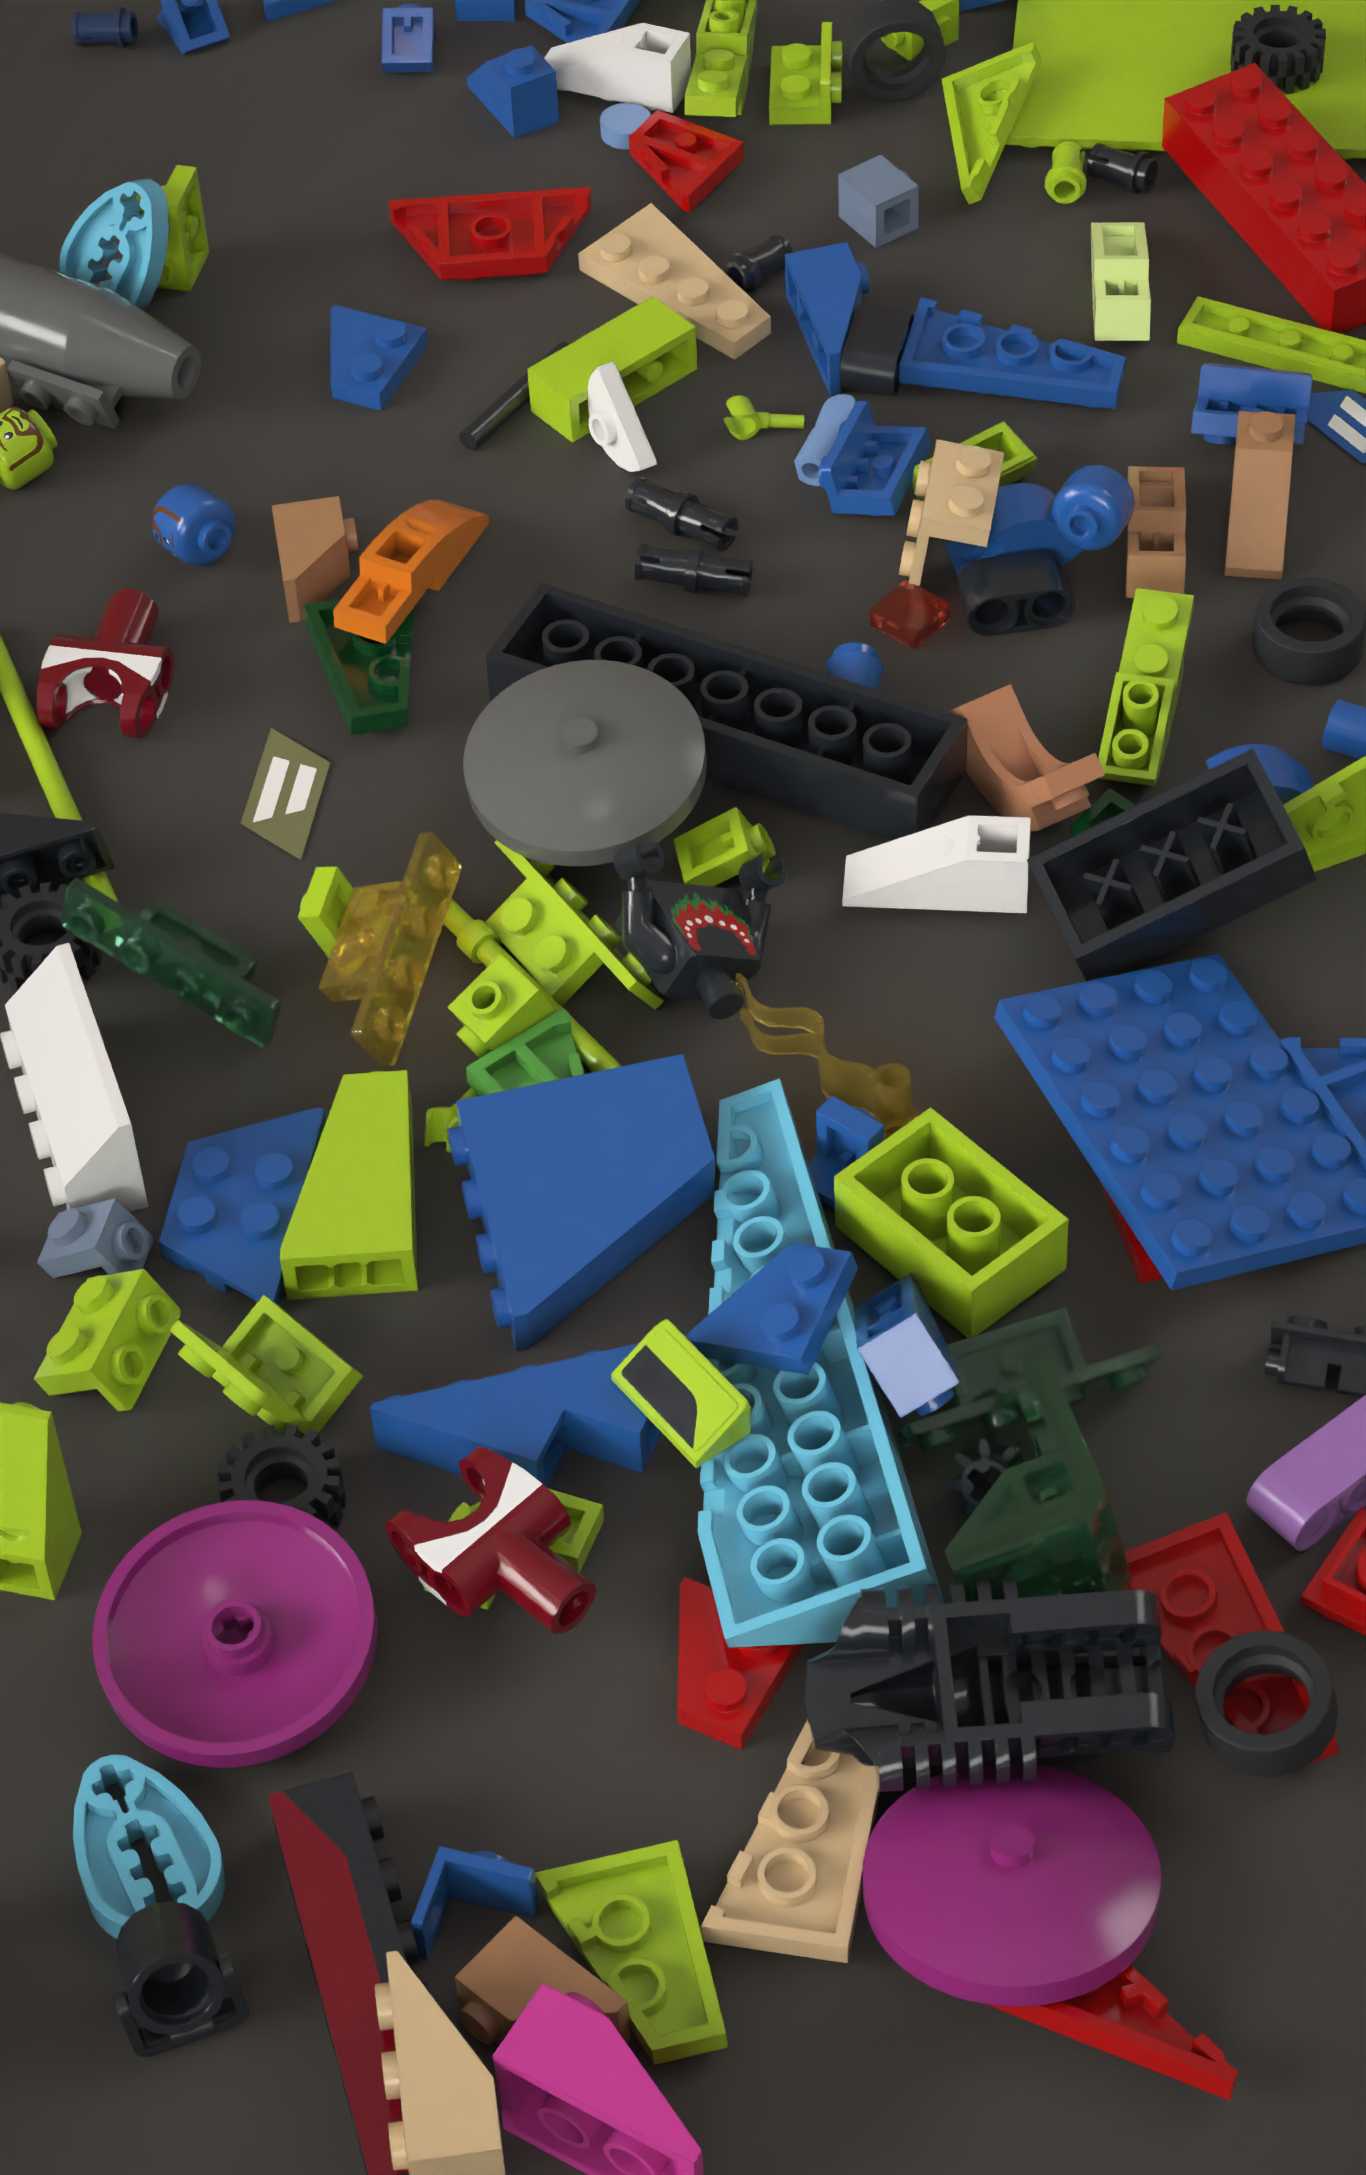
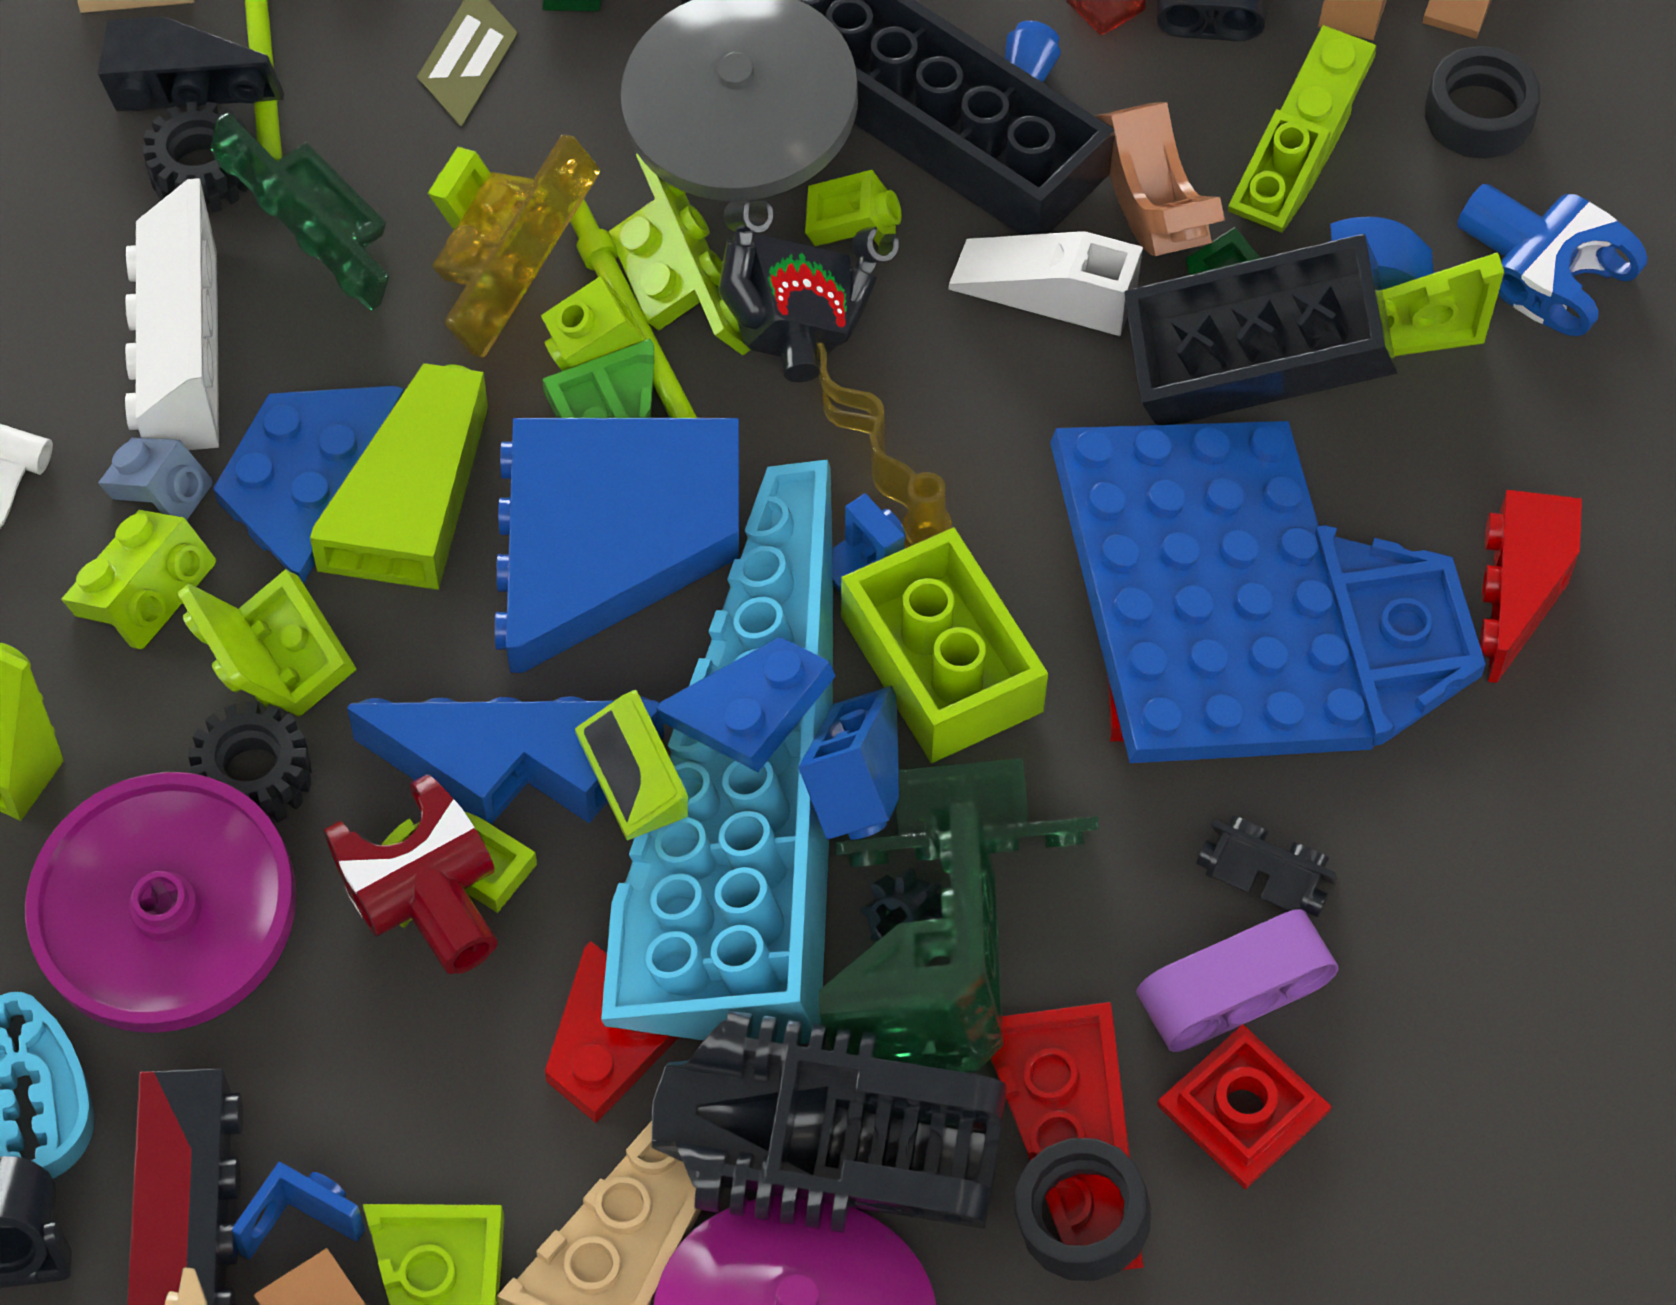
camera: 10 degrees right, 10 degrees up
(440, 1119) = (502, 422): lime hand -> none

